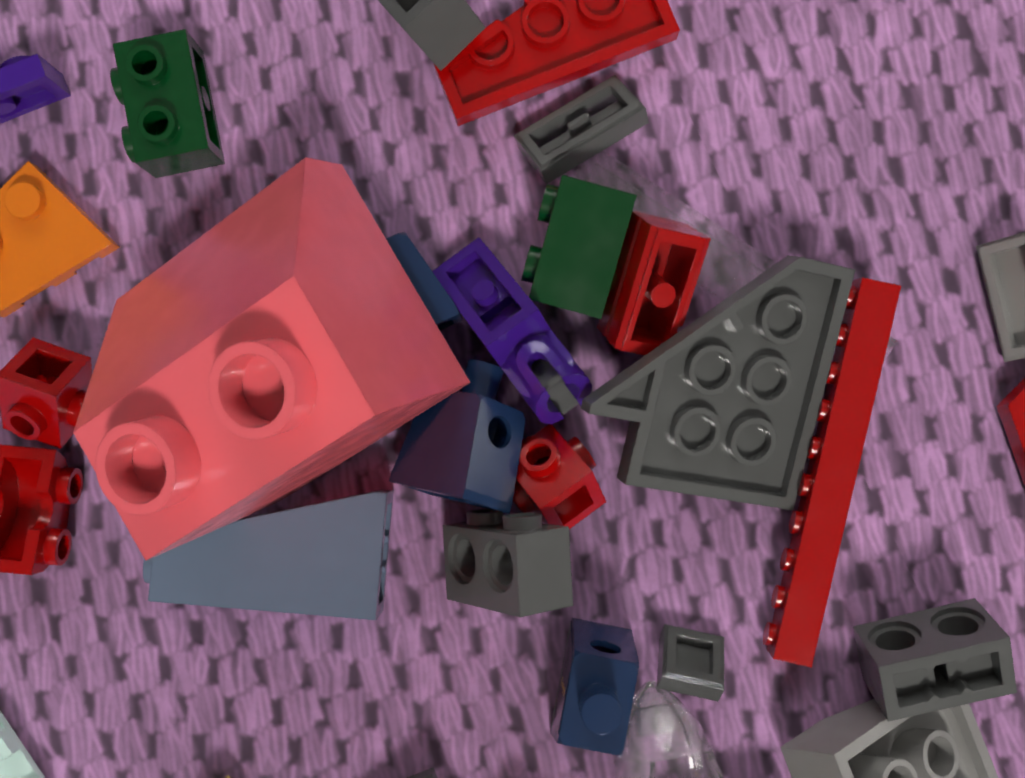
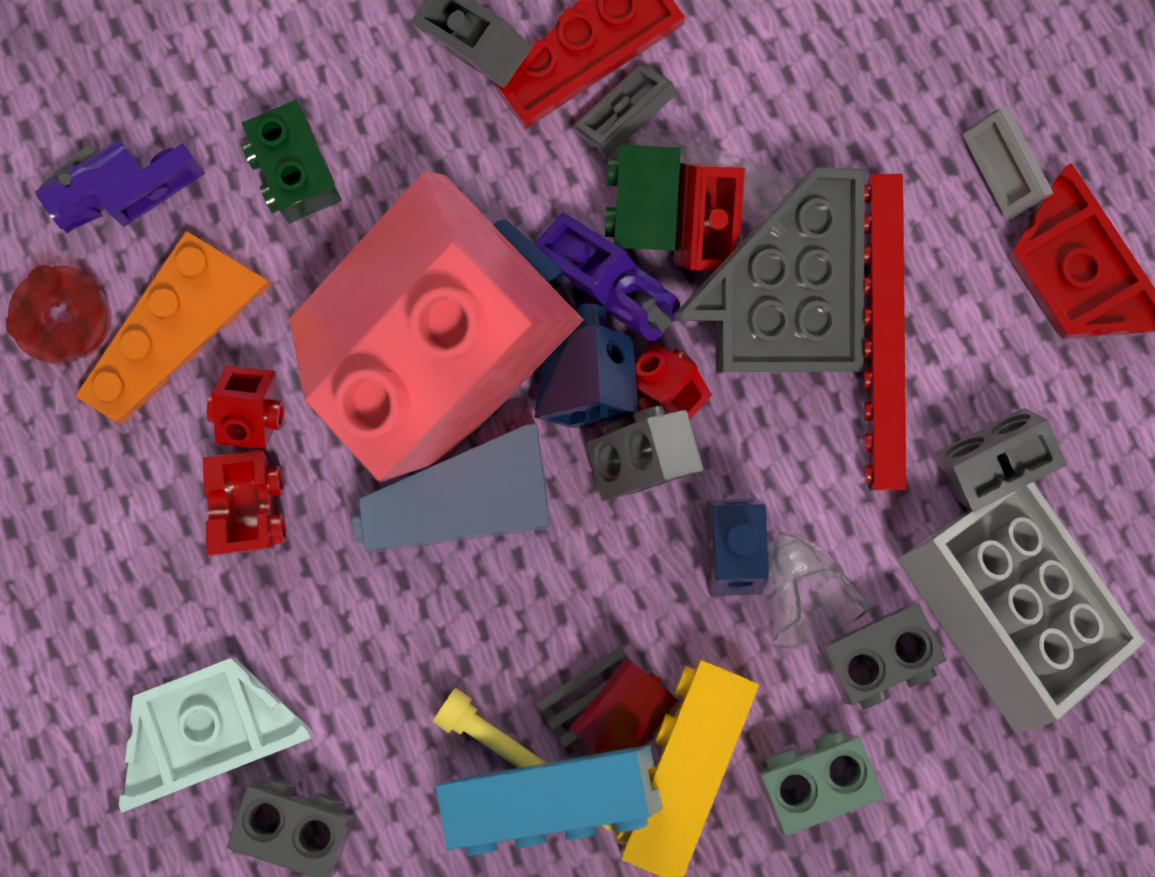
camera: 10 degrees left, 5 degrees down
(691, 663) = (810, 509): dark grey tile -> none

